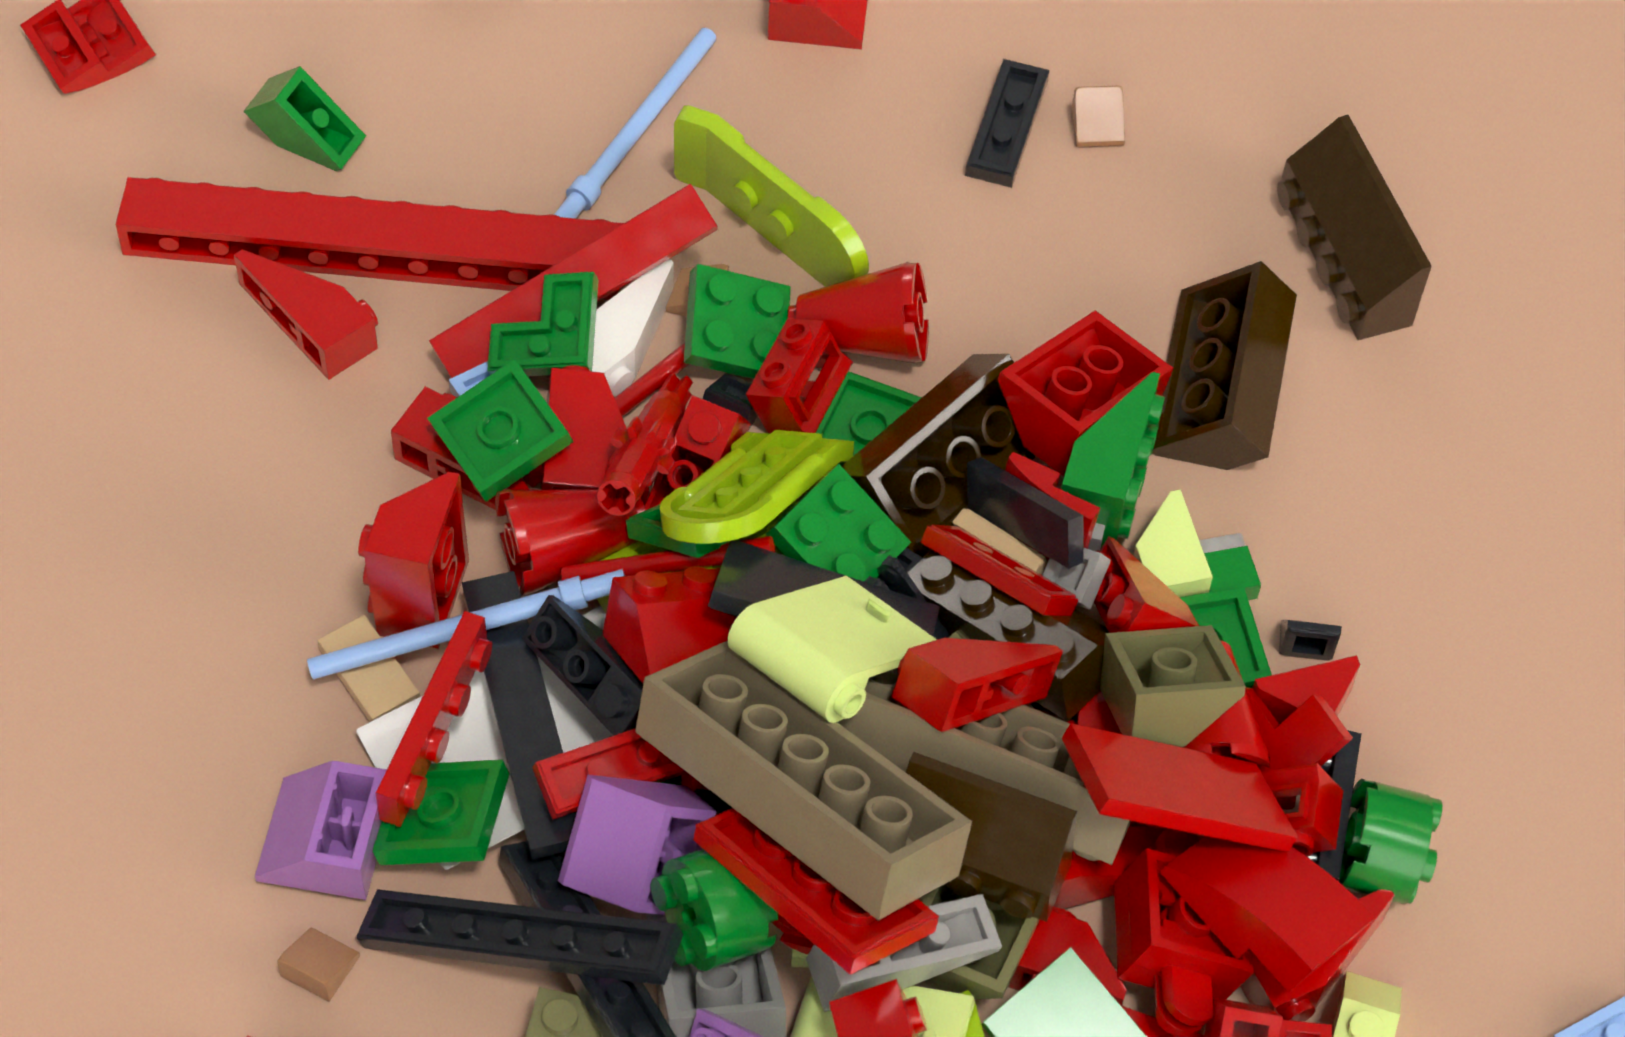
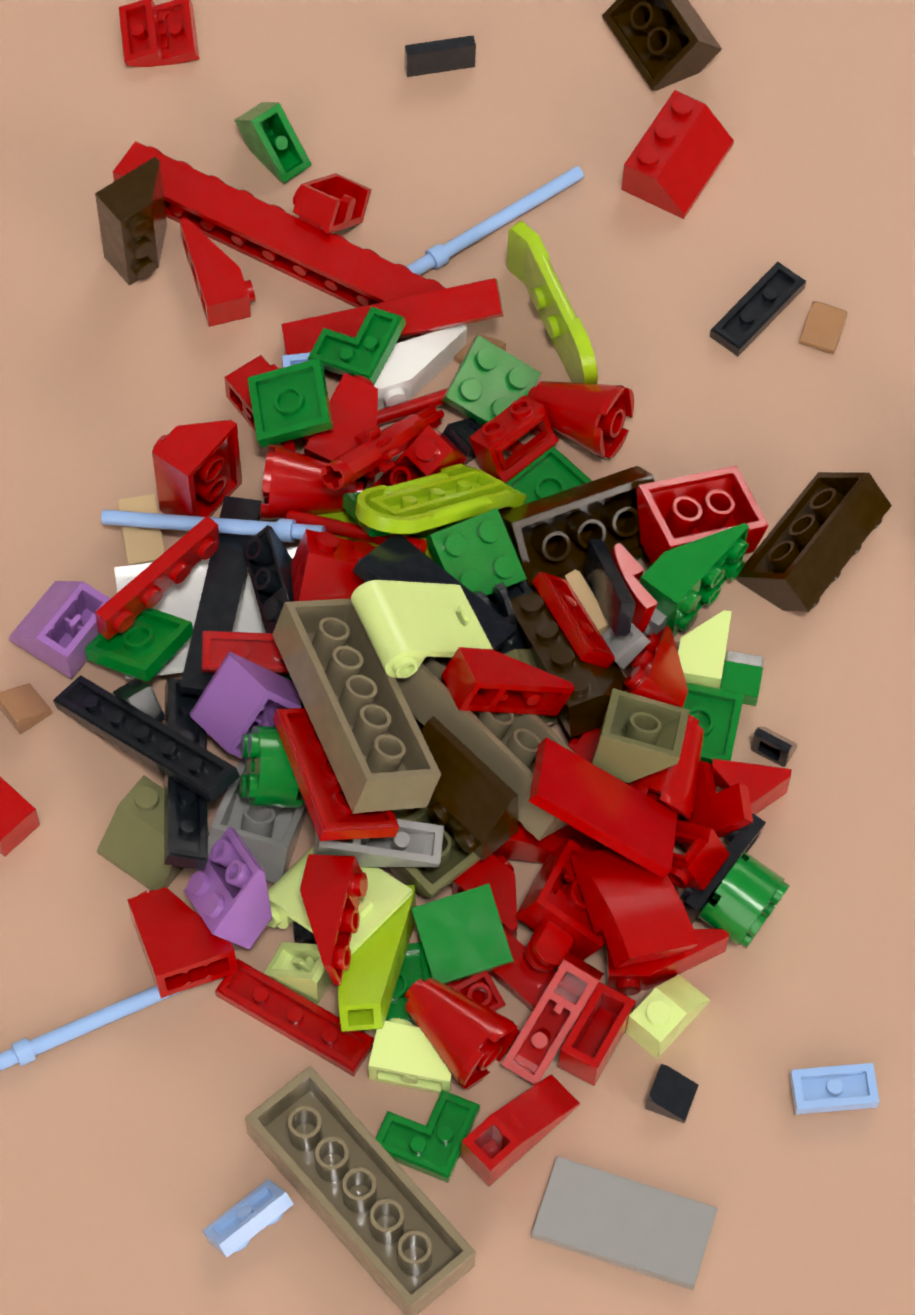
camera: 25 degrees right, 5 degrees up
(176, 277) = (133, 221): none -> dark brown slope
(422, 168) = (331, 202): none -> red window
(480, 883) = (141, 697): none -> black slope

